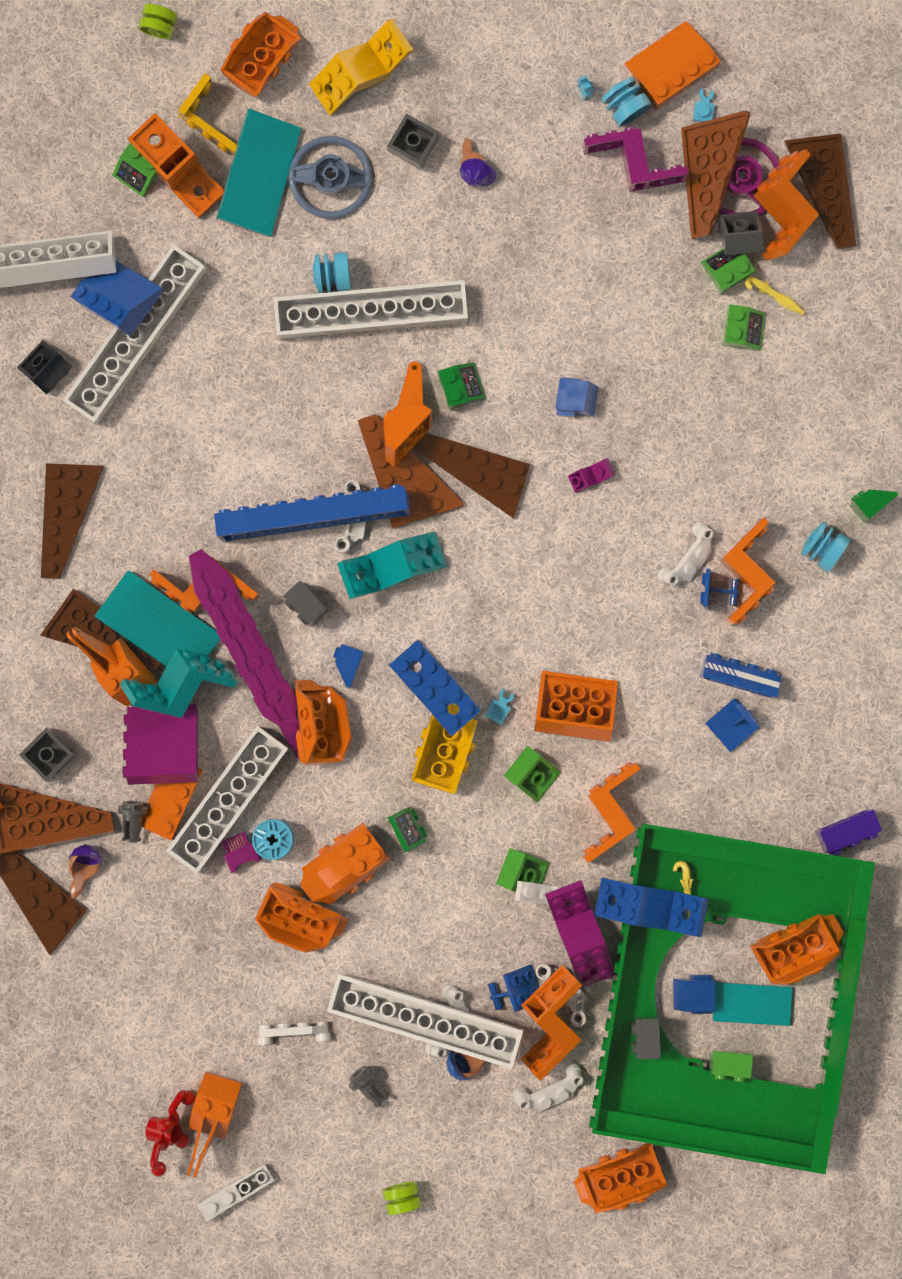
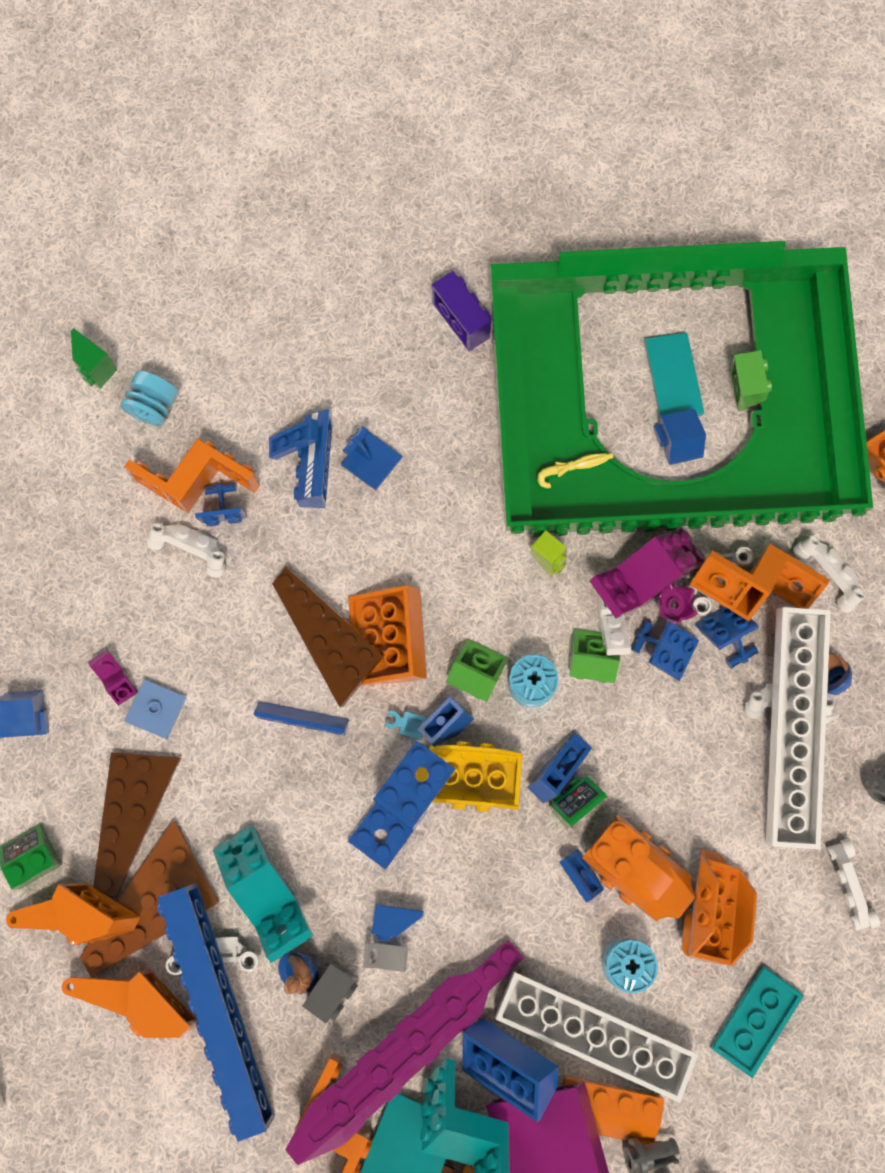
camera: 105 degrees left, 10 degrees down
(209, 929) = (757, 1021): none -> teal tile
(219, 727) = (509, 1068): none -> blue slope
(239, 851) = (654, 1006): magenta piece -> none
(321, 651) = (386, 957): none -> light grey bracket
(322, 723) = (474, 935): orange slope -> none
(325, 581) = (298, 972): none -> piece
(331, 458) = (143, 1000): none -> orange slope
(349, 819) = (581, 876): none -> blue plate
(437, 822) = (559, 769): none -> blue slope
(493, 738) = (445, 722): none -> blue slope
(506, 806) = (522, 689): none -> medium azure wheel
(511, 937) = (671, 650): none -> blue plate
(524, 623) = (301, 718): none -> blue slope
(543, 955) = (684, 608): none -> magenta piece
(557, 505) = (155, 709): none -> medium blue plate
(579, 661) = (334, 643): none -> reddish brown wing
(610, 812) = (501, 569): orange bracket -> none
(615, 856) = (549, 553): none -> lime slope
(647, 1037) = (746, 472): dark grey brick -> none
(651, 907) = (599, 497): blue bracket -> none
(761, 662) = (293, 439): none -> blue plate
(799, 949) = (607, 332): orange slope -> none

